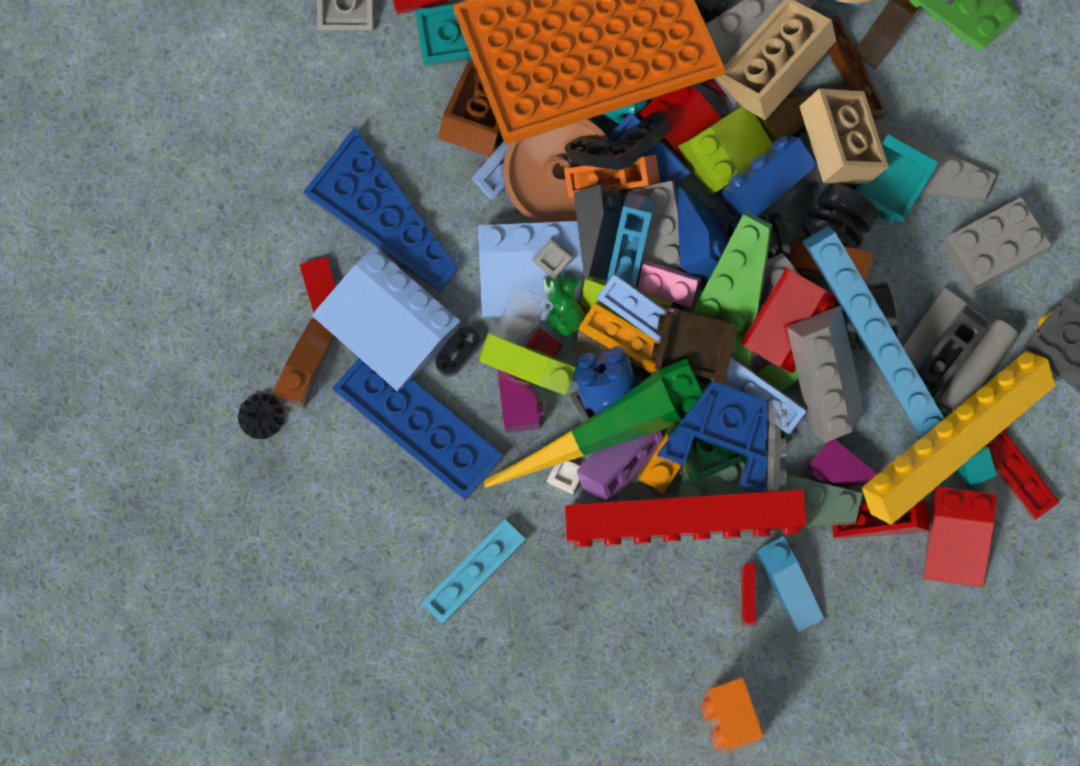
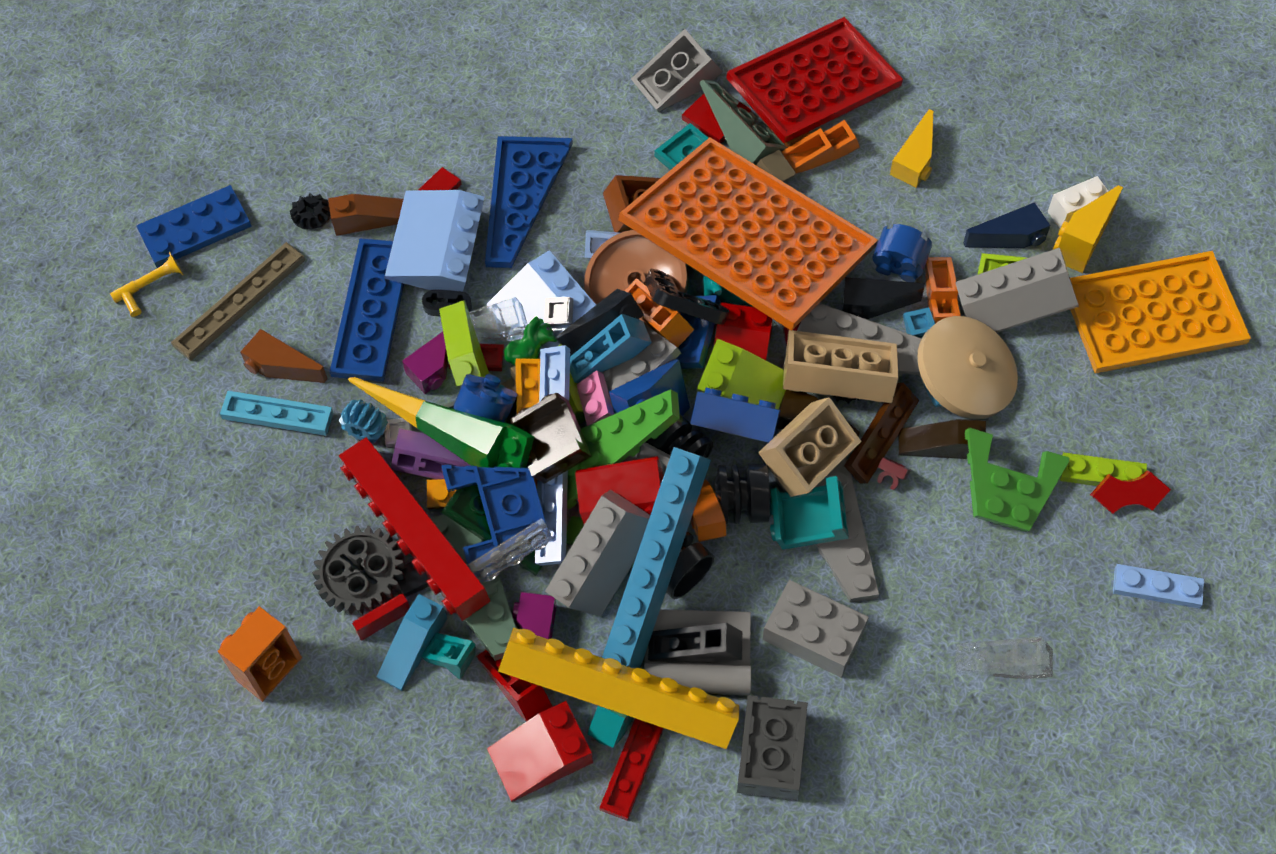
camera: 55 degrees right, 15 degrees down
(199, 535) = (194, 225): none -> blue plate
(233, 639) = (126, 291): none -> yellow piece
(318, 539) = (238, 301): none -> dark tan tile
(415, 540) = (278, 360): none -> dark orange slope
(543, 498) = (363, 420): none -> dark azure gear
(681, 562) = (340, 589): none -> dark grey gear
(722, 550) = (413, 580): none -> black tile
(824, 556) = (450, 653): none -> teal slope
(892, 82) = (894, 470): none -> dark red tile

